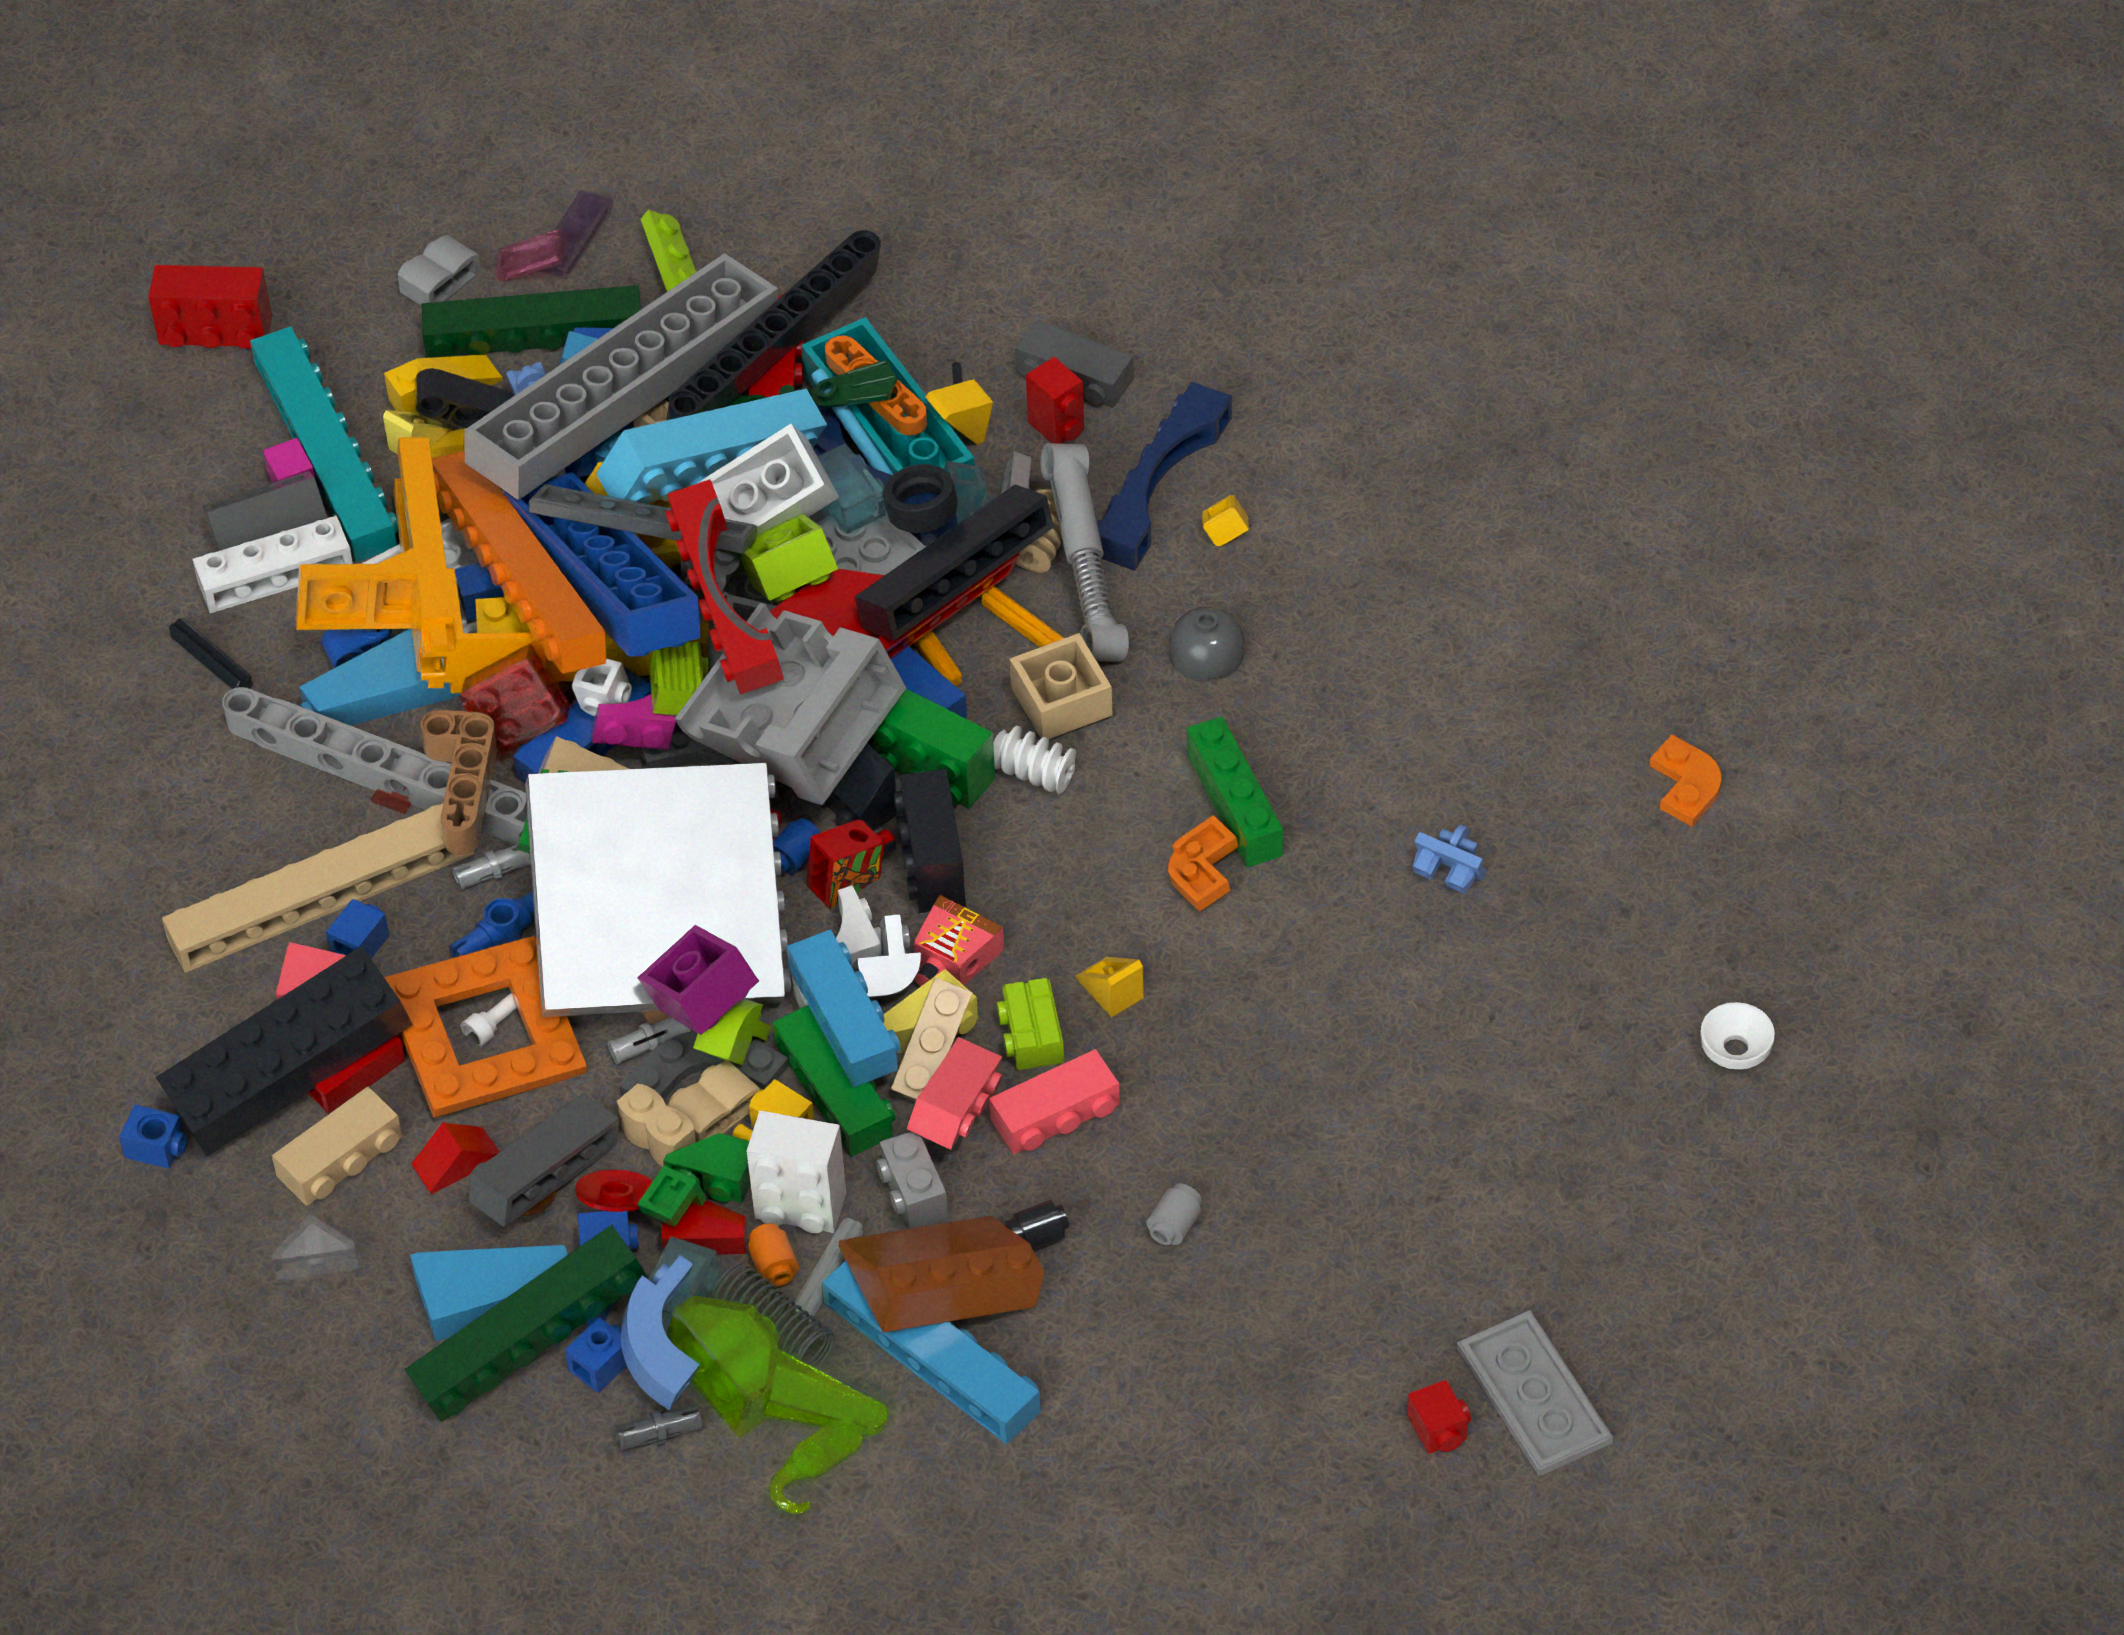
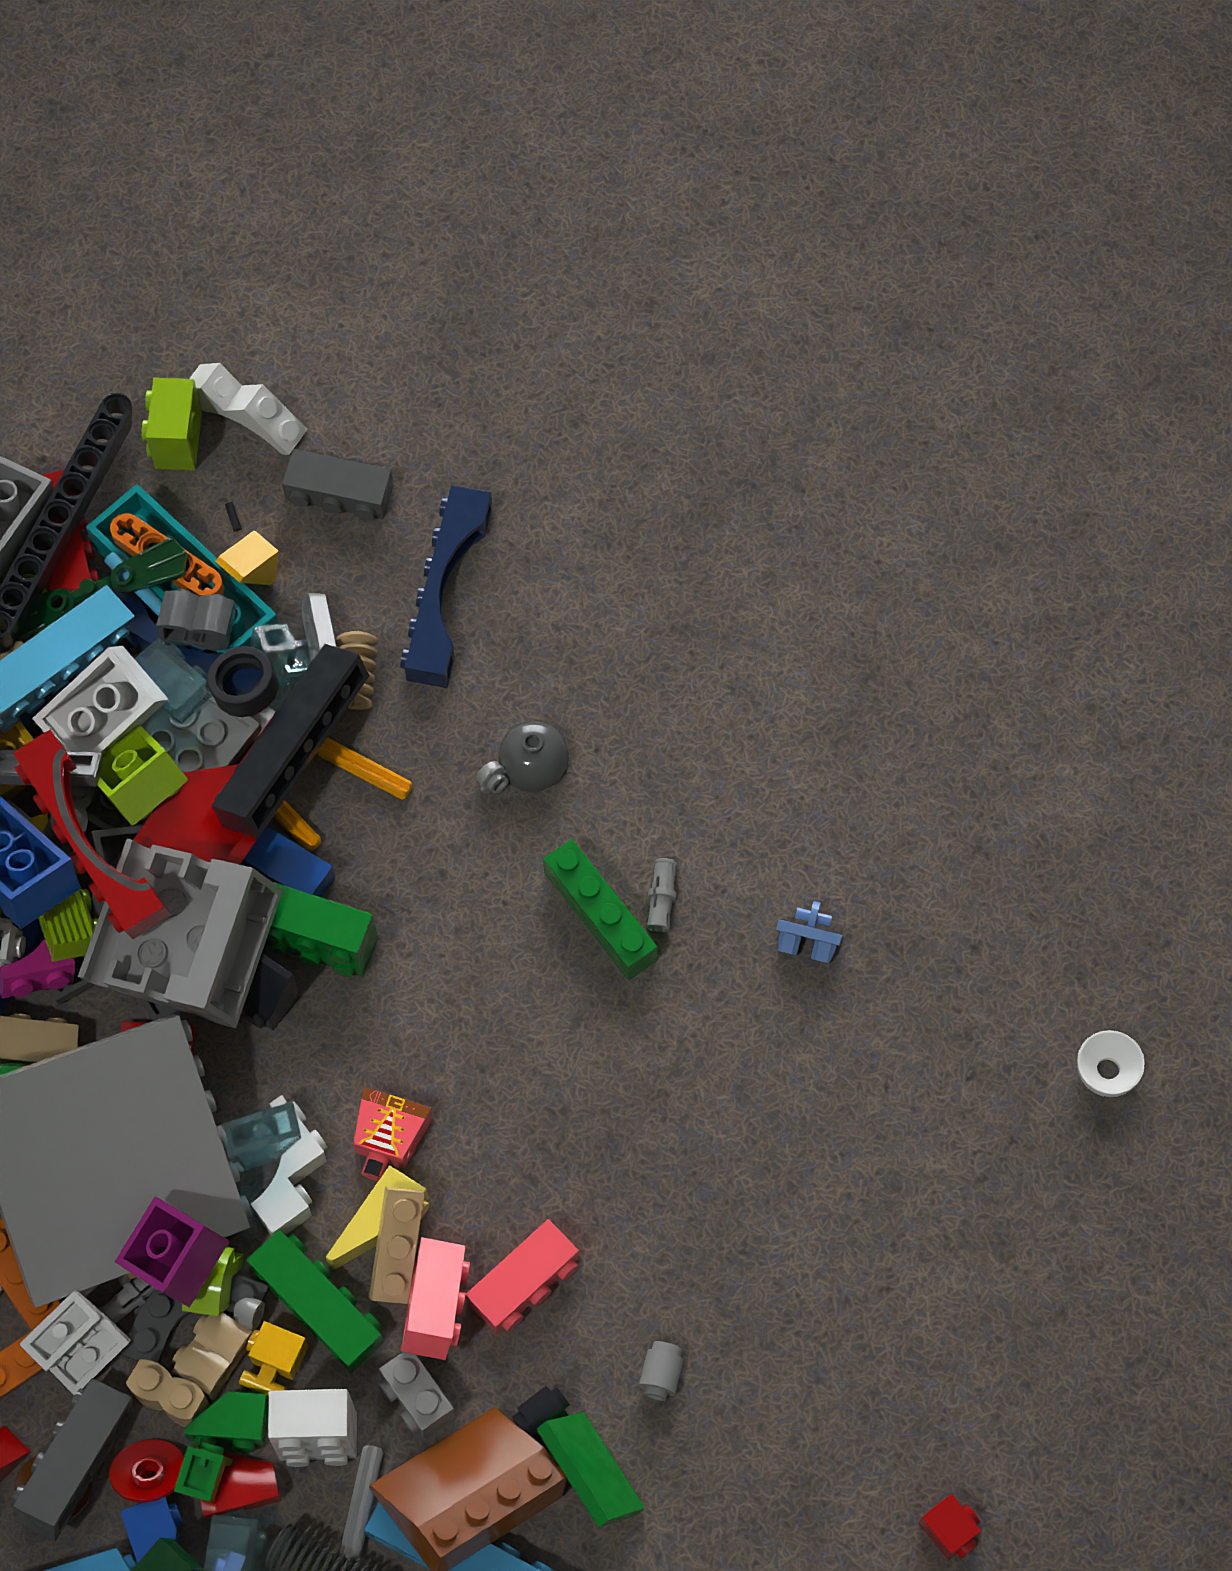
camera: 15 degrees left, 15 degrees up
(576, 1056) = (75, 1342): none -> white slope
(762, 1070) = (249, 1312): none -> light grey hinge
(772, 1254) = (309, 1503): orange brick -> none
(794, 844) = (217, 1057): blue brick -> none
(820, 908) = (261, 1136): none -> clear light blue slope
(843, 1007) = (309, 1236): dark azure brick -> none
(846, 858) = (269, 1066): red torso -> none
(889, 440) = (196, 620): none -> dark grey brick
(895, 970) = (341, 1177): brick -> none
(918, 274) = (172, 423): none -> lime brick
(931, 838) = (340, 1031): black brick -> none
(1008, 277) = (248, 405): none -> white arch
(1032, 1024) = (480, 1198): lime brick -> none
(1034, 761) = (411, 917): white piece -> none
(1055, 401) = (333, 534): red brick -> none
(1061, 687) = (416, 835): tan brick -> none
(1067, 471) = (365, 612): light grey piece -> none
(1072, 1279) = (590, 1469): none -> green tile
(1114, 983) = (540, 1134): yellow slope -> none
(1157, 655) = (492, 778): none -> light grey plate
(1192, 862) = (579, 993): orange plate -> none
(1225, 520) = (516, 619): yellow slope -> none
(1304, 795) = (662, 895): none -> light grey pin
(1534, 1393) = (1026, 1475): light grey tile -> none
(1696, 778) = (1001, 792): orange plate -> none

